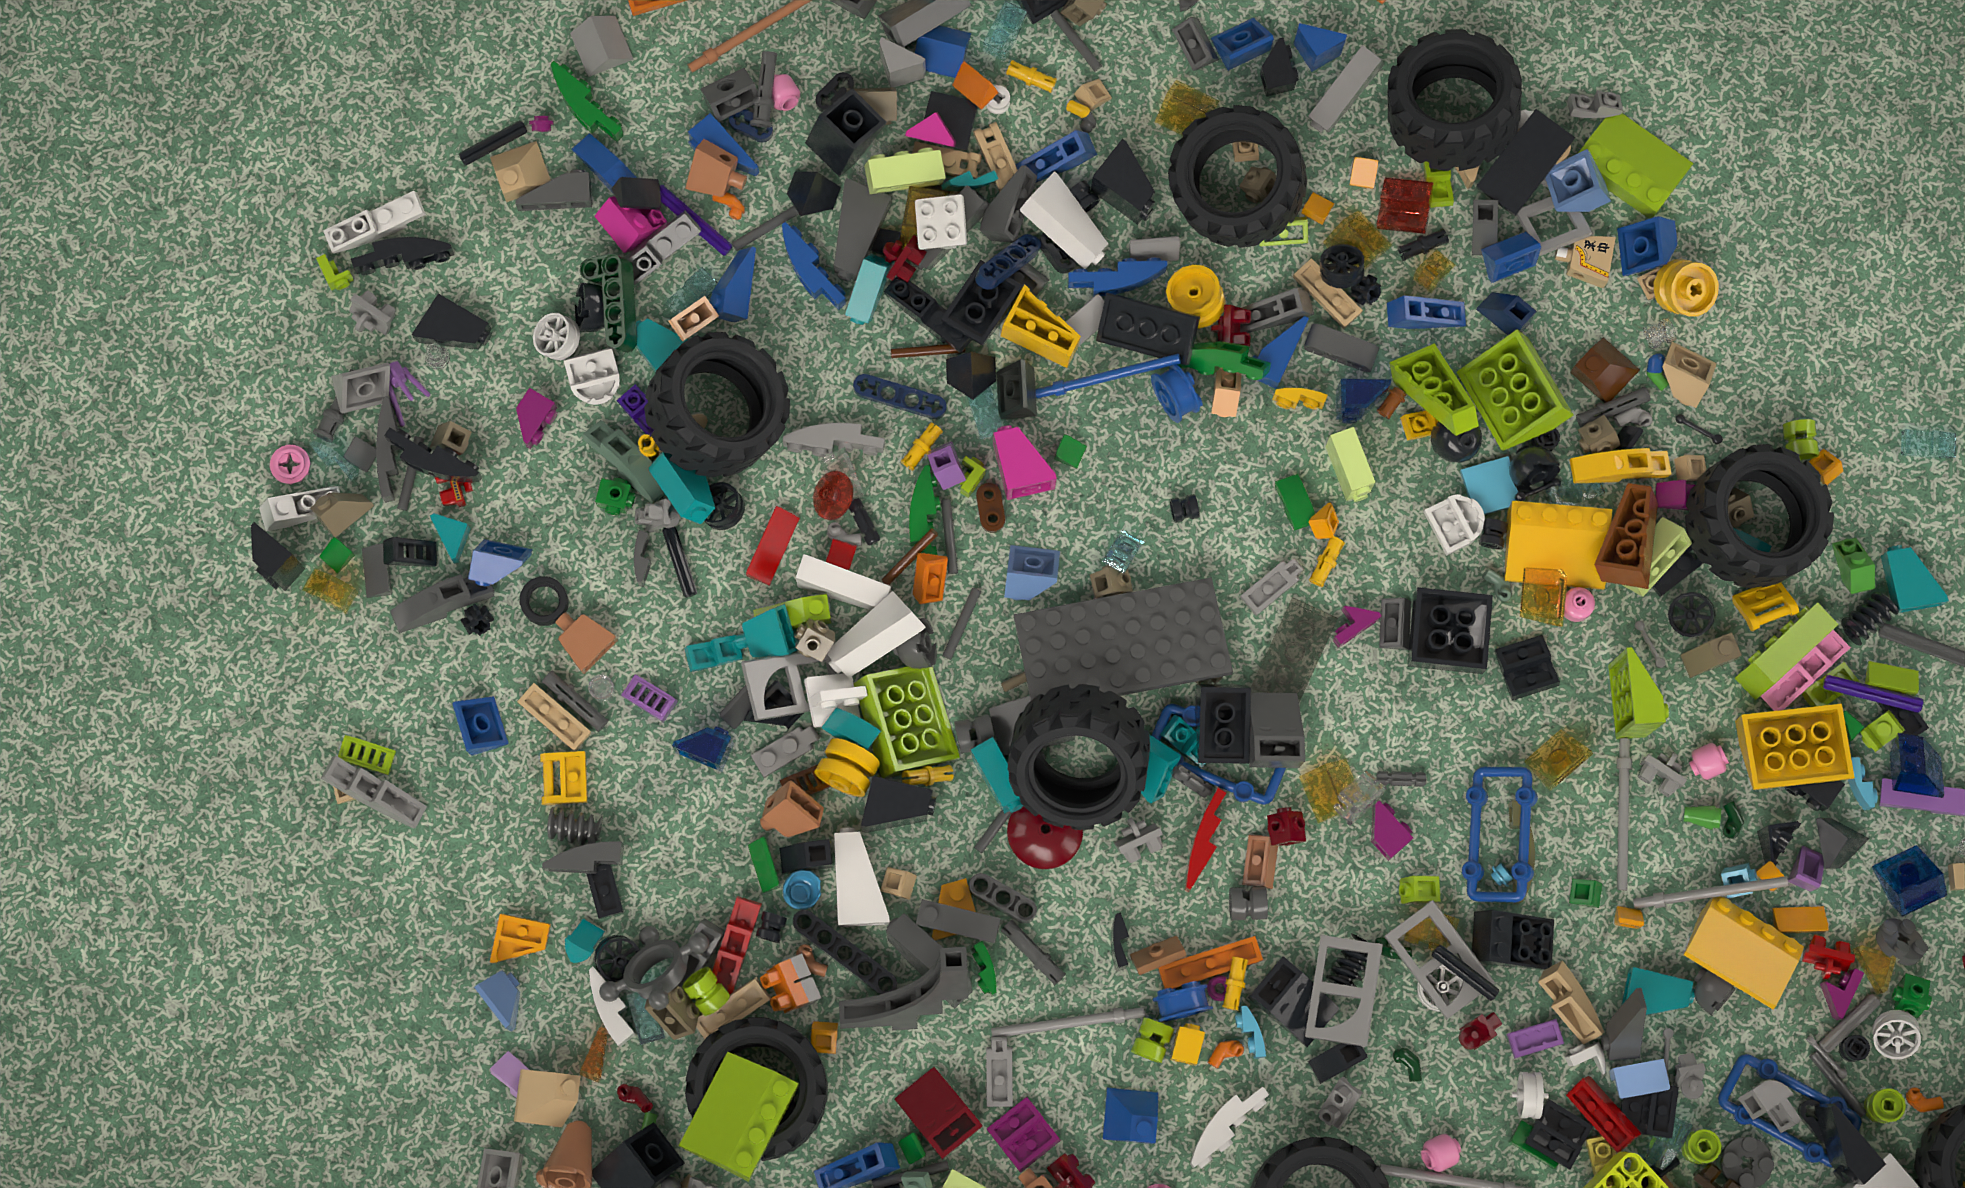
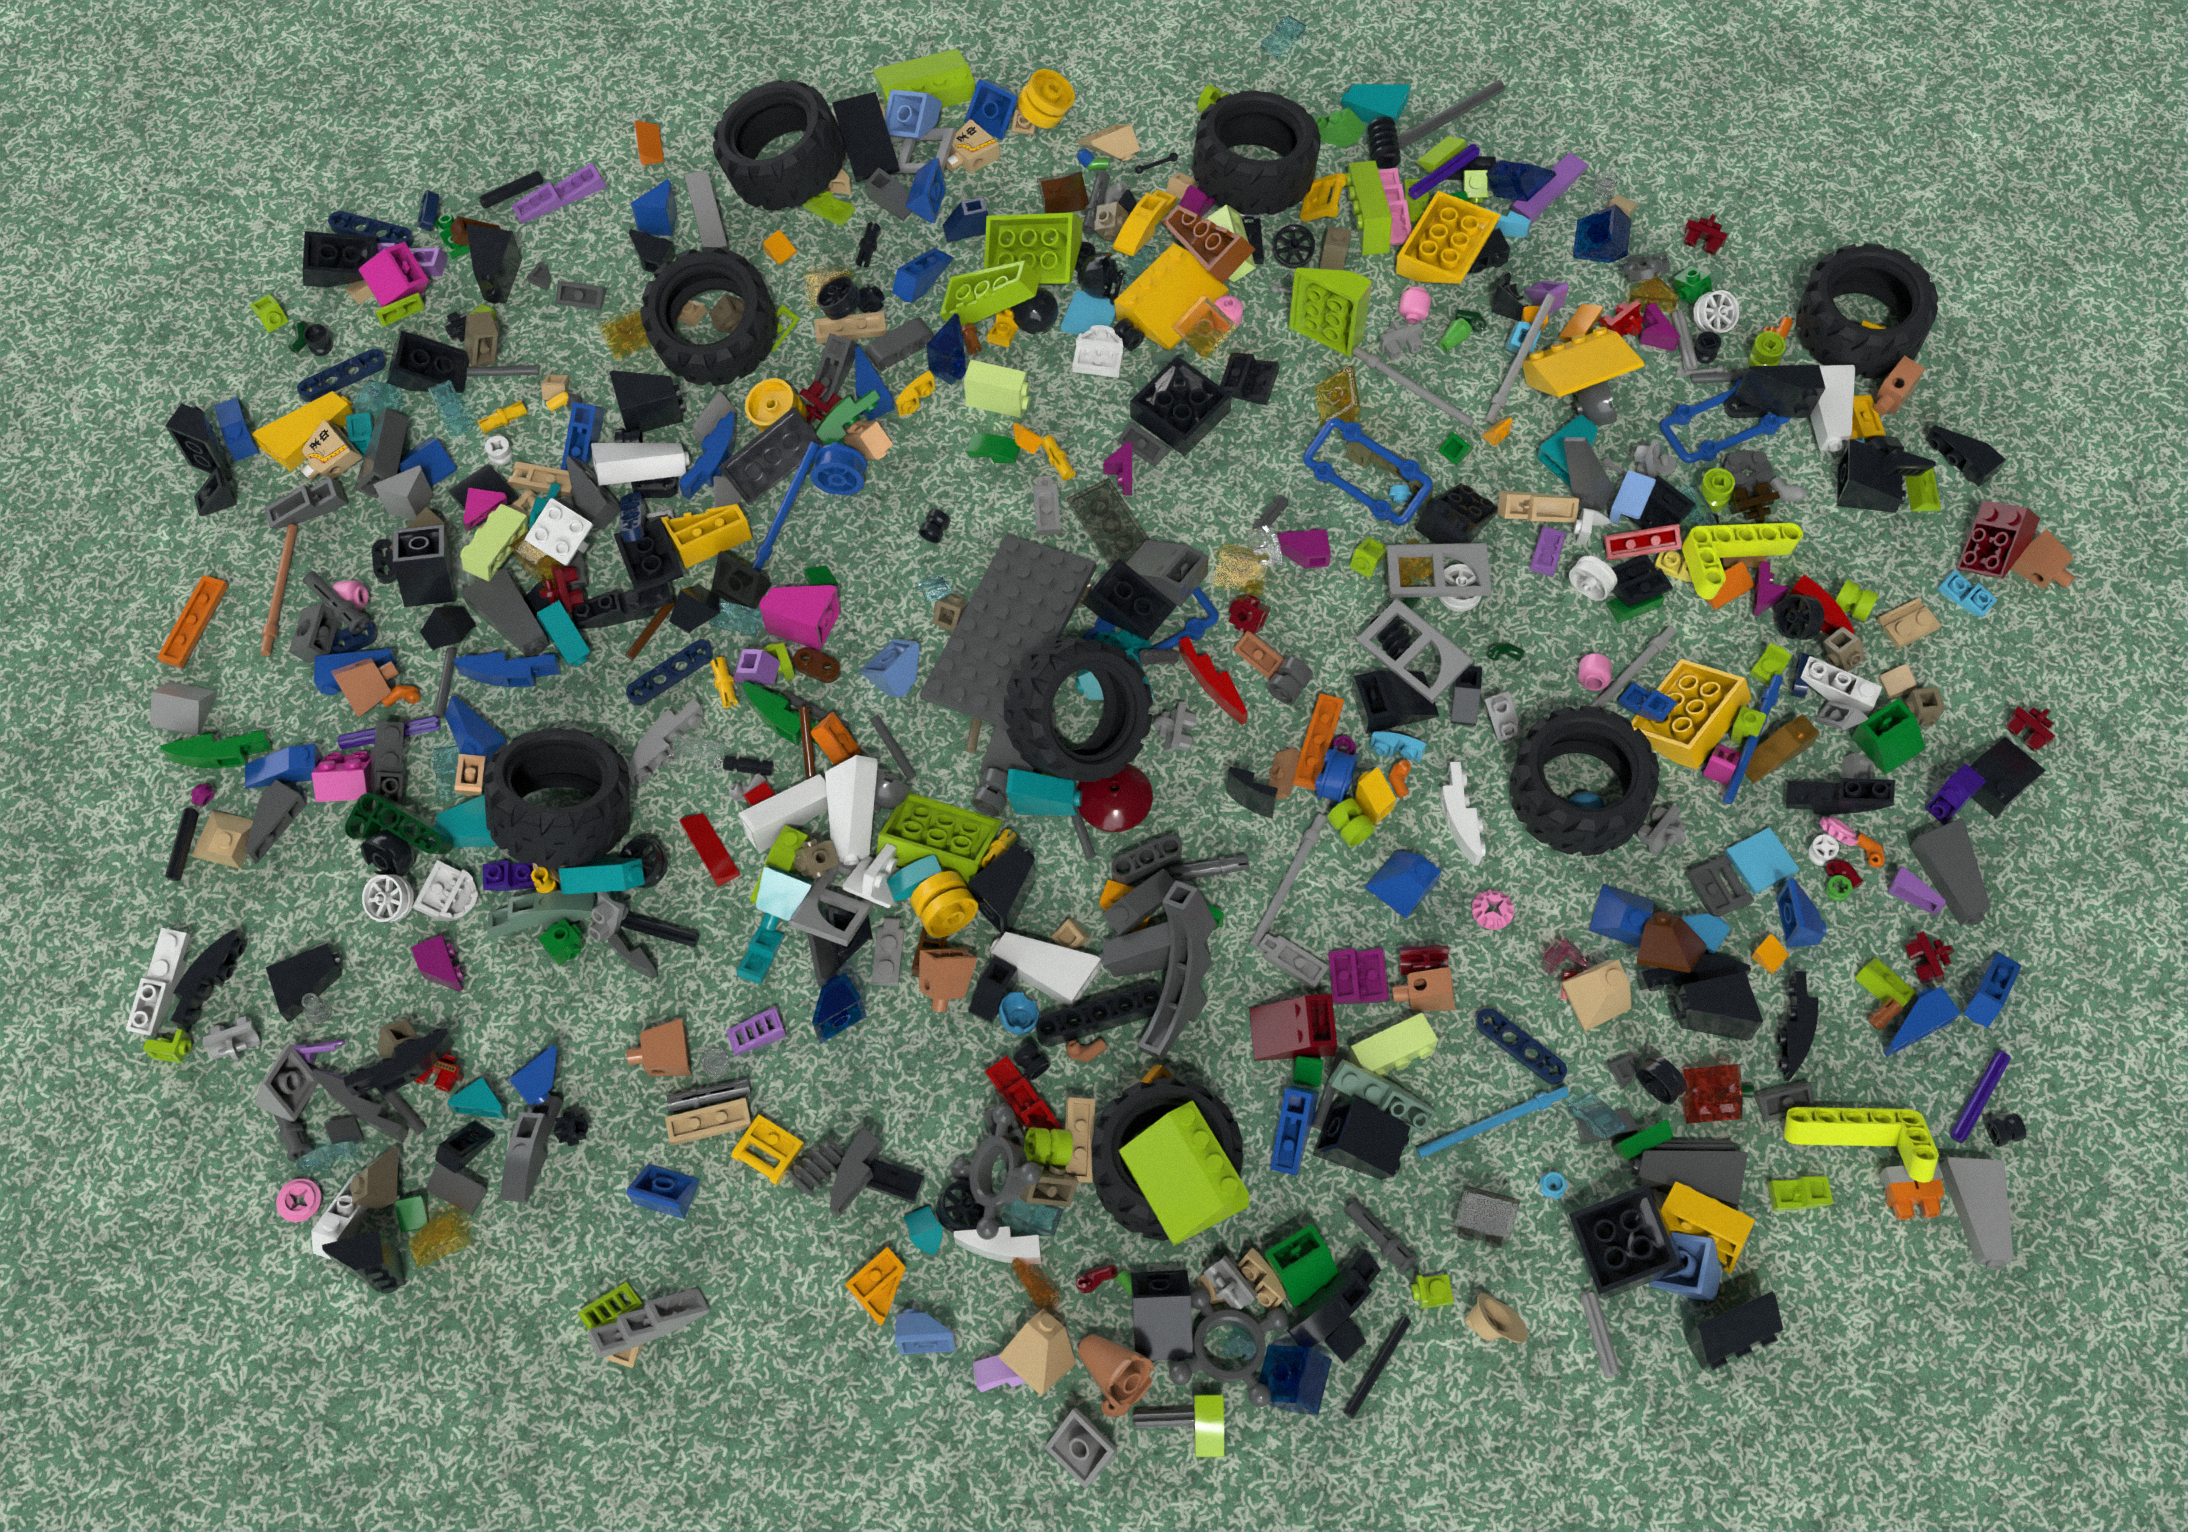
camera: 50 degrees left, 15 degrees down
(532, 585) = (609, 1080): black tyre -> none
(637, 193) = (327, 750): black slope -> none
(764, 865) = (973, 1031): green slope -> none
(789, 985) = (1099, 1080): orange hips -> none
(833, 495) = (715, 769): clear red dish -> none
(974, 86) = (472, 455): orange slope -> none
(1235, 983) = (1349, 729): yellow pin -> none
(1242, 43) = (610, 261): blue slope -> none
(1317, 208) = (781, 295): light orange slope -> none
(1405, 205) = (828, 236): clear red slope -> none
(1433, 271) = (894, 252): clear yellow slope -> none
(1465, 972) = (1463, 554): black axle -> none
(1479, 1031) = (1515, 579): dark red hips -> none
(1601, 106) = (862, 76): light grey slope -> none
(1660, 333) = (1064, 142): clear wheel -> none
(1771, 1098) = (1713, 421): light grey brick -> none
(1838, 842) = (1540, 262): black slope -> none

